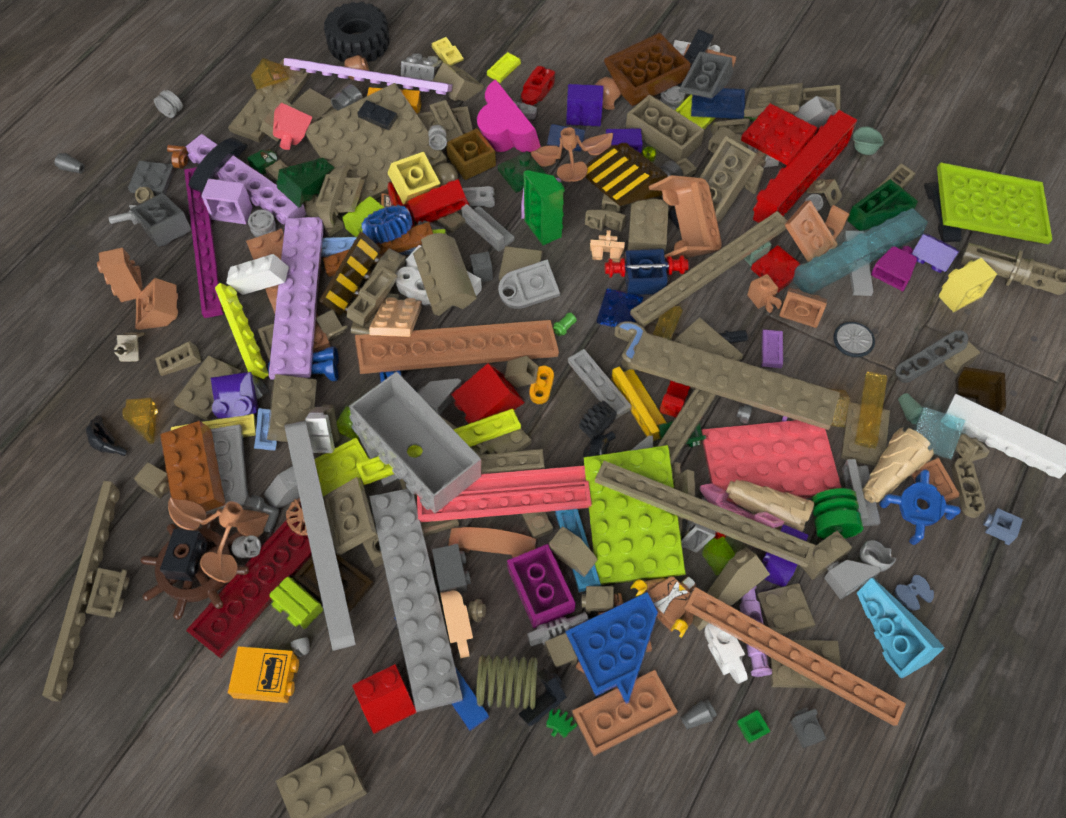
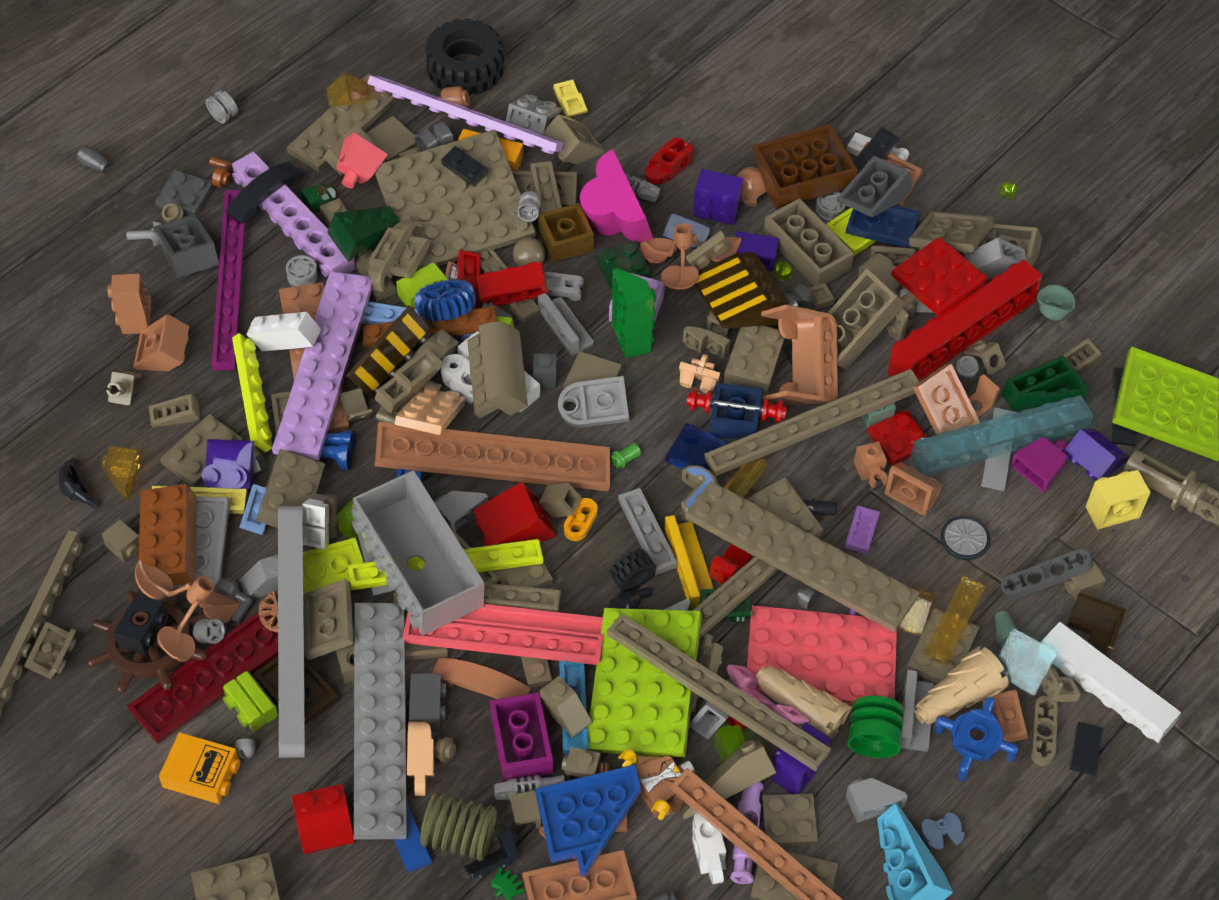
camera: 10 degrees right, 5 degrees down
(227, 201) = (267, 238): lavender brick -> none
(412, 176) = (488, 249): light yellow brick -> none
(503, 67) = (634, 130): neon yellow tile -> none
(595, 142) = (707, 251): none -> dark tan plate
(803, 62) = (1008, 189): none -> clear neon green hinge
(826, 553) = (850, 766): dark tan brick -> none
(877, 555) = (910, 780): light grey hair -> none
(1003, 525) = (1067, 779): sand blue brick -> none
(1006, 494) = (1086, 748): none -> black tile

